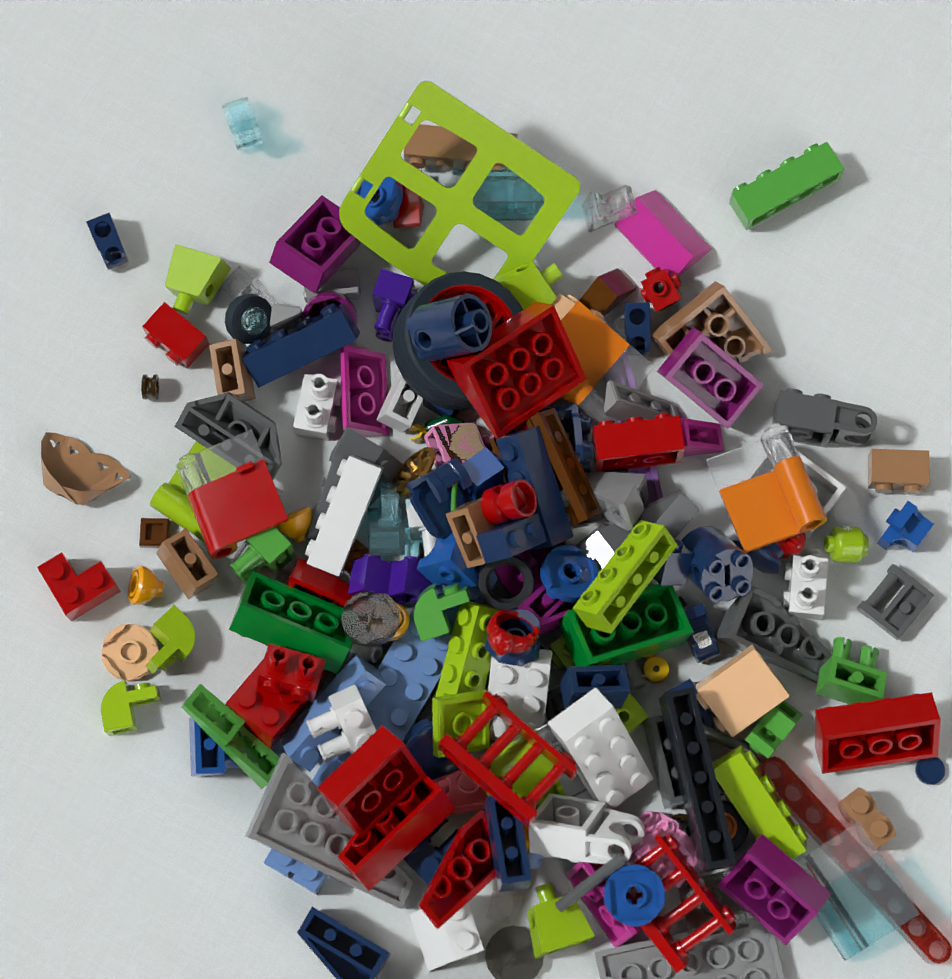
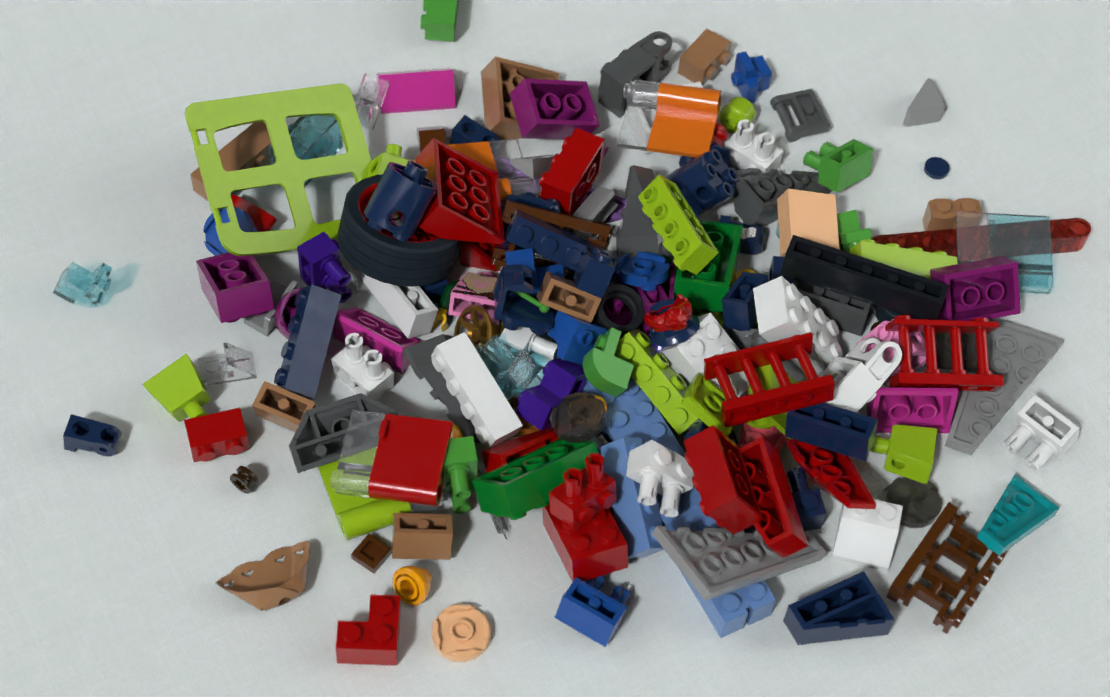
camera: 65 degrees left, 20 degrees down
(118, 705) = (506, 665): lime brick -> none
(176, 635) = (477, 583): lime brick -> none
(229, 733) = (591, 579): bright green slope -> none
(258, 314) = (251, 368): black wheel -> none
(283, 315) = (273, 337): light grey slope -> none
(508, 502) = (564, 256): red wheel -> none
(591, 882) = (899, 392): dark grey bar -> none
(620, 505) = (614, 205): light grey slope -> none
(646, 907) = (920, 375): blue plate -> none
(671, 292) = (457, 104): red brick -> none
(877, 732) = (894, 169): red brick -> none

